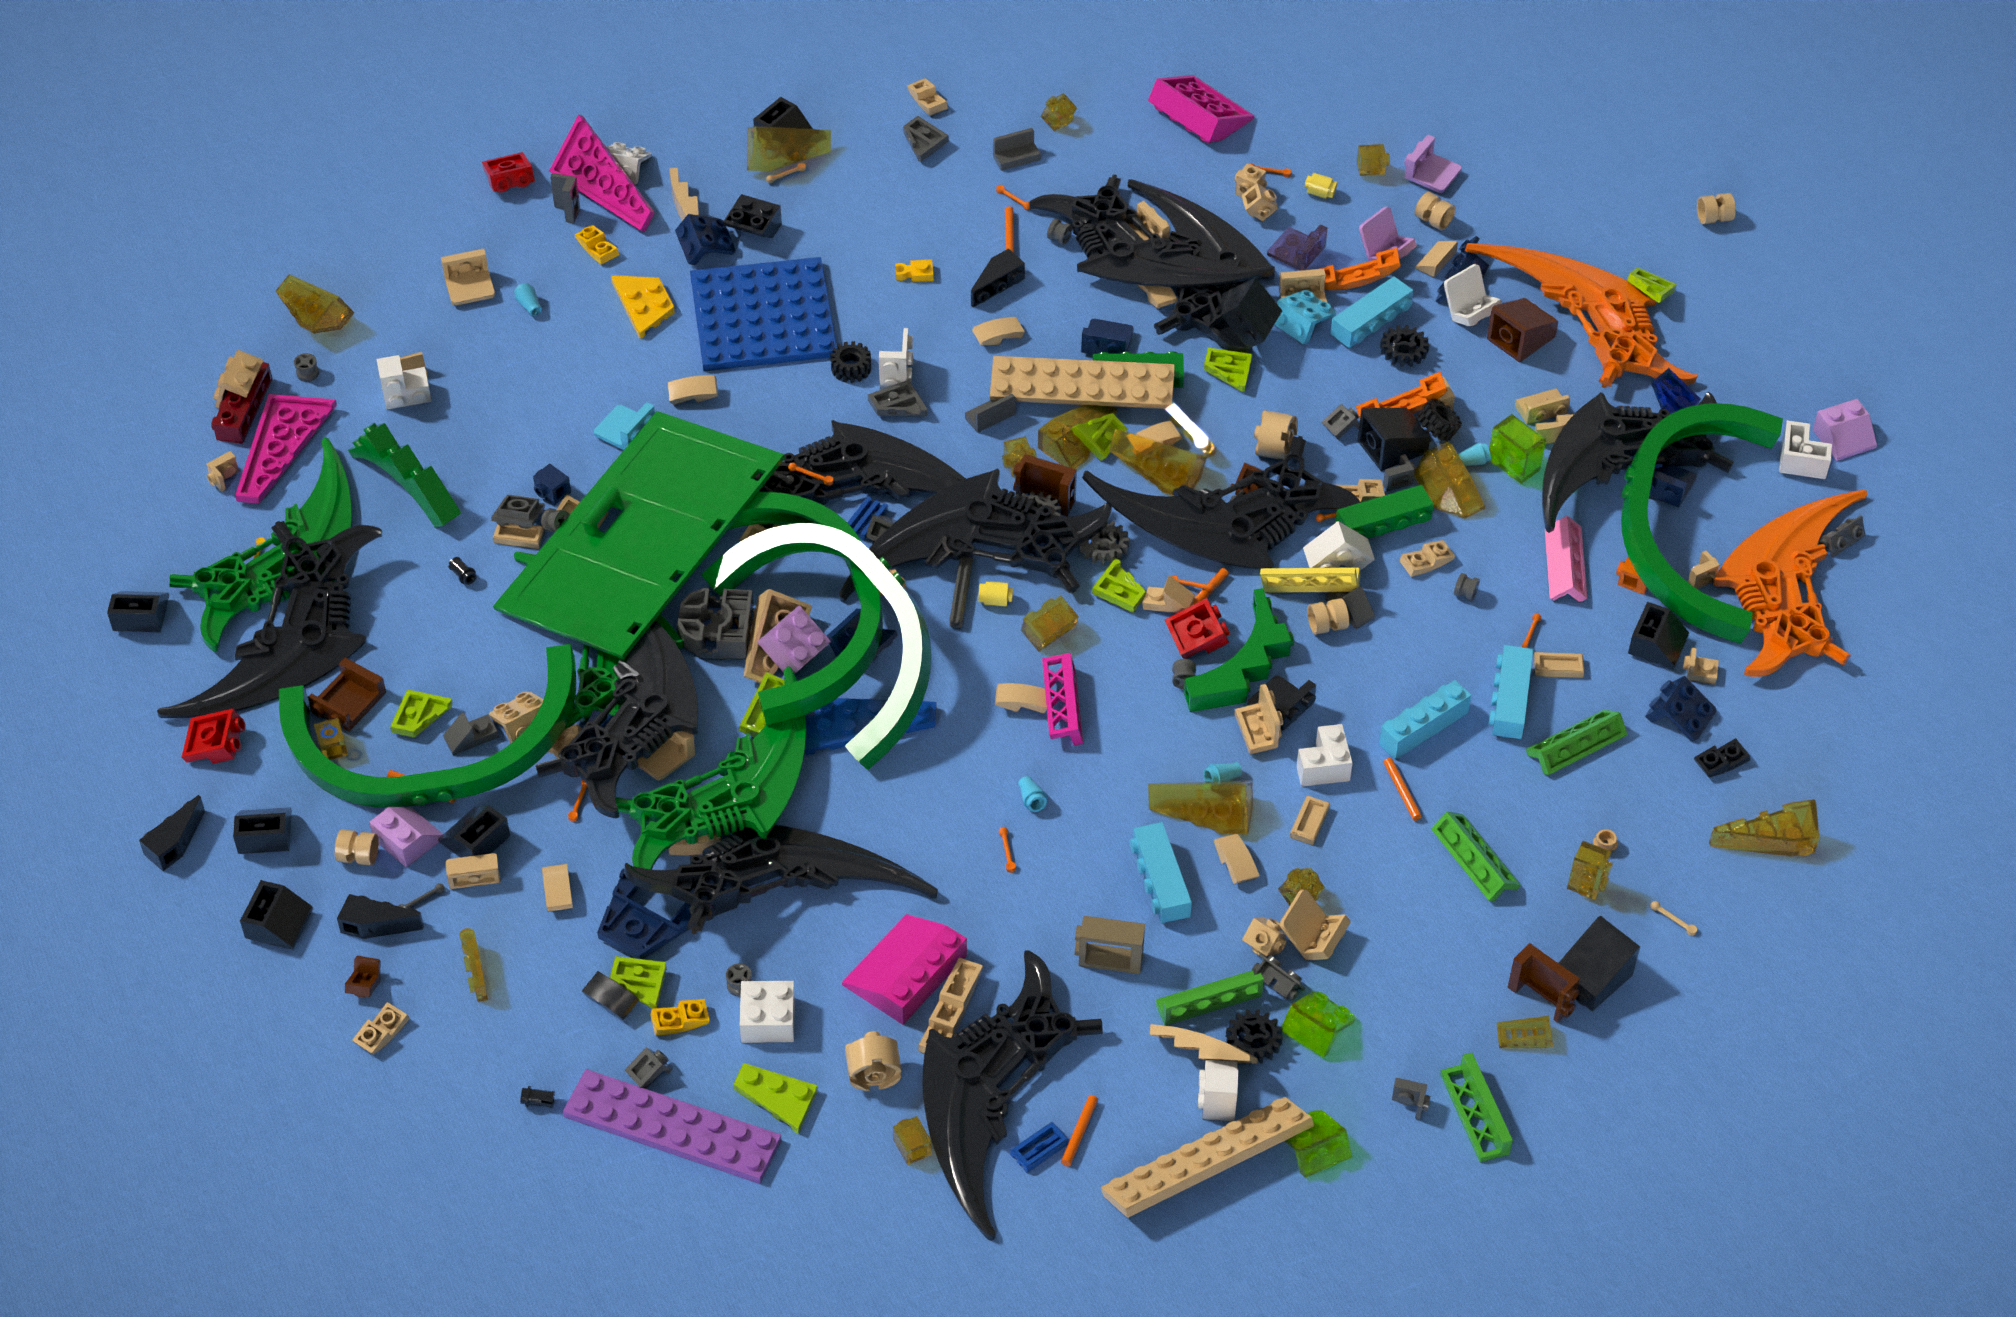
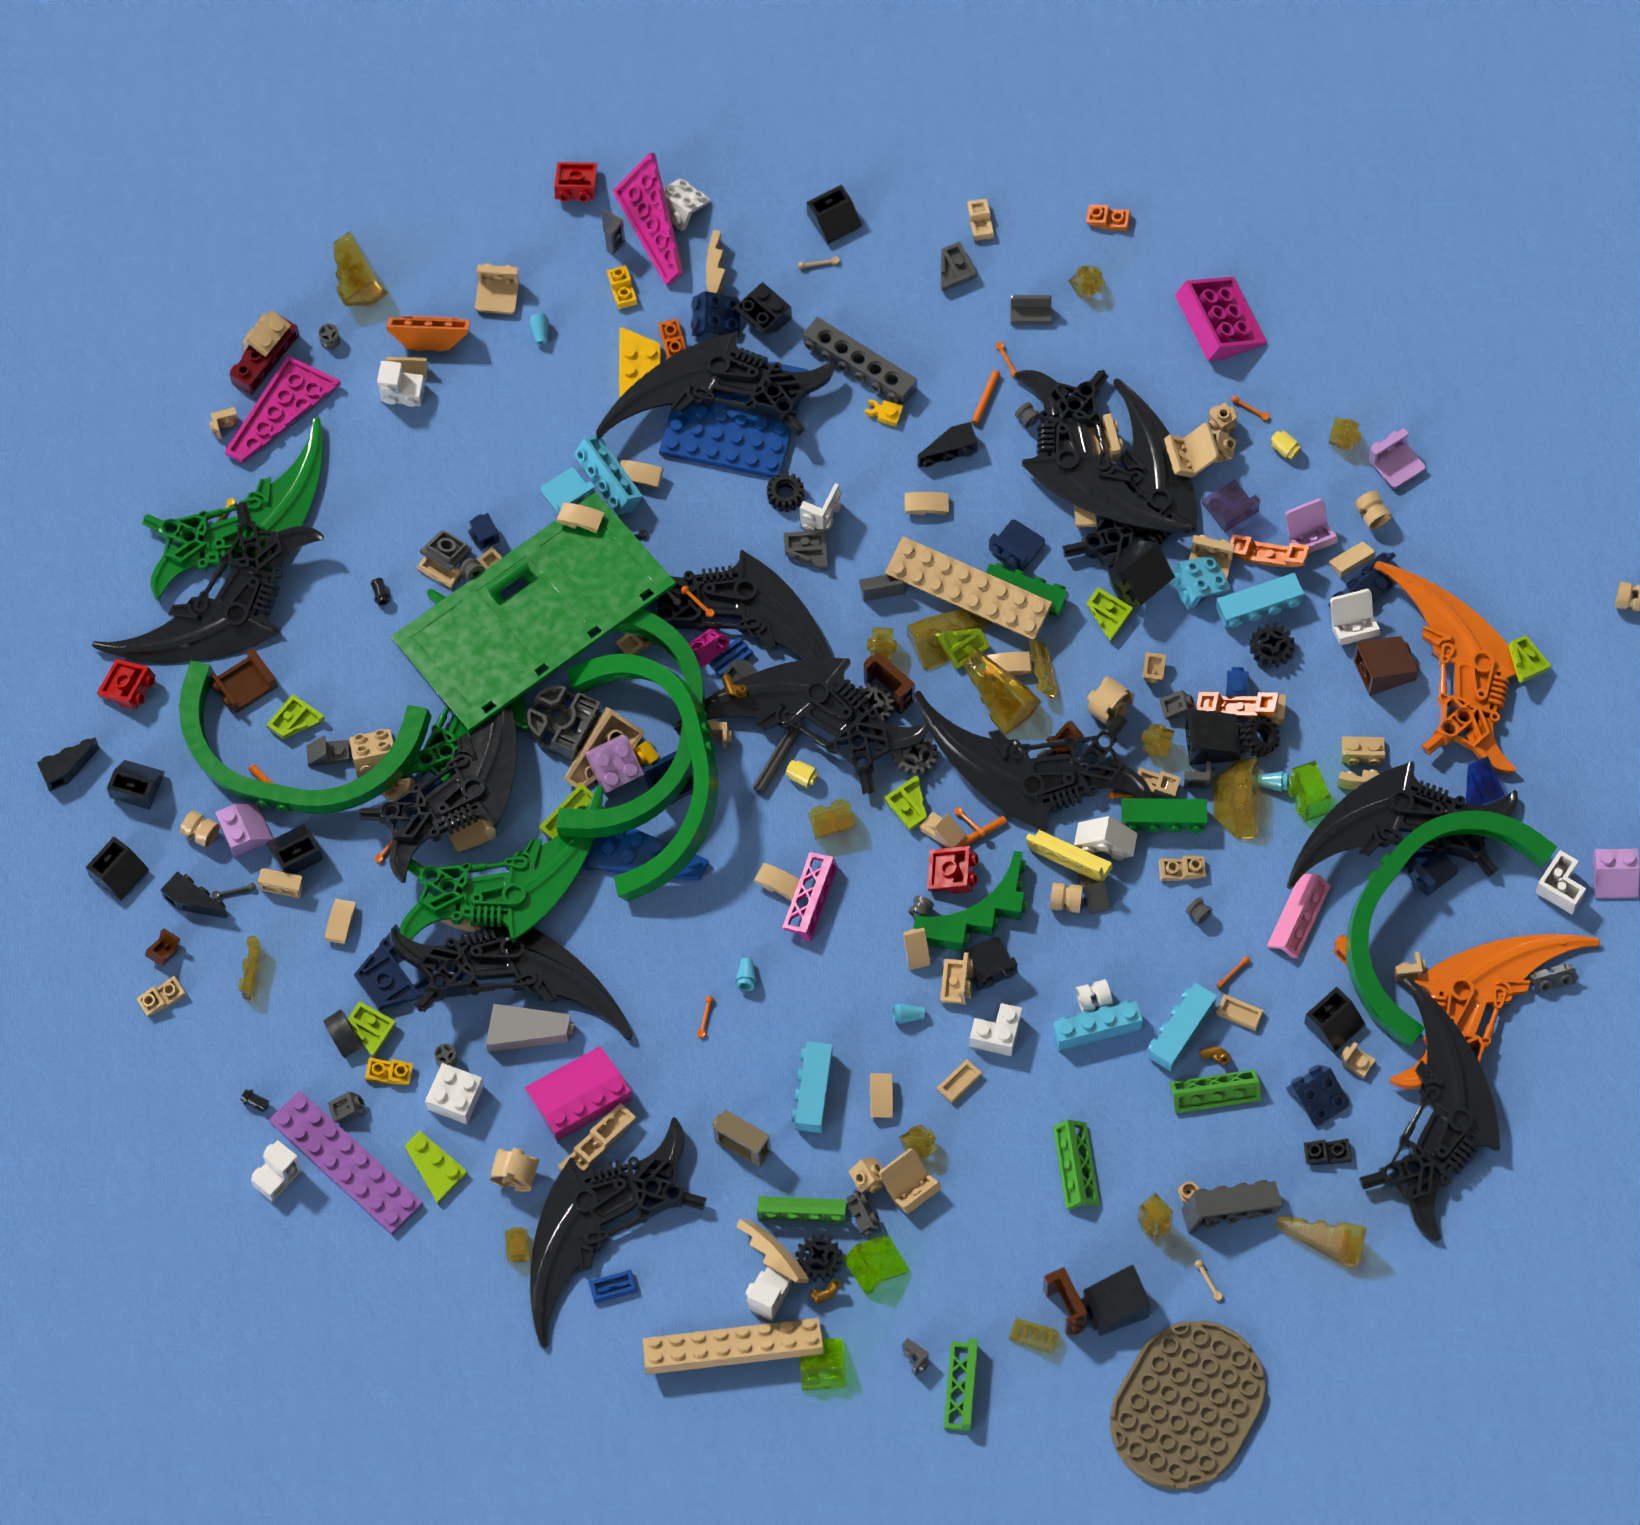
camera: 25 degrees right, 15 degrees up
(137, 611) = (109, 538): black slope -> none
(331, 739) = (216, 719): clear yellow brick -> none
(401, 463) = (366, 483): green arch -> none
(414, 332) = (428, 332): none -> orange wedge
(599, 1156) = (278, 1171): none -> white brick
(643, 386) = (608, 475): none -> medium azure brick
(645, 432) = (578, 515): none -> tan slope
(669, 272) = (671, 337): none -> orange slope
(728, 274) = (725, 369): none -> black piece
(778, 147) = (824, 237): clear yellow wedge -> none
(818, 920) = (524, 1028): none -> light grey slope
(824, 621) = (645, 753): none -> yellow bracket
(845, 507) = (706, 646): none -> dark pink piece
(869, 235) = (855, 351): none -> dark grey brick
(896, 535) = (732, 689): none -> pearl gold arm
(1043, 64) = (1107, 218): none -> orange slope
(1079, 1130) = (648, 1285): orange bar -> none
(1203, 707) = (916, 948): none -> tan slope
(1210, 804) = (886, 1038): clear yellow wedge -> none
(1240, 209) = (1192, 452): none -> tan bracket
(1282, 1070) = (820, 1297): none -> pearl gold arm
(1300, 397) = (1154, 667): none -> tan bracket
(1349, 454) = (1157, 740): none -> clear yellow brick
(1388, 383) = (1237, 682): none -> blue bracket
(1402, 789) = (1049, 1075): orange bar -> none
(1406, 693) = (1101, 994): none -> white wheel
(1558, 707) = (1216, 1053): none -> pearl gold arm
(1656, 836) = (1231, 1204): none -> dark grey wedge
(1723, 1045) = (1187, 1405): none -> dark tan tile
(1837, 687) = (1461, 1109): none -> black piece

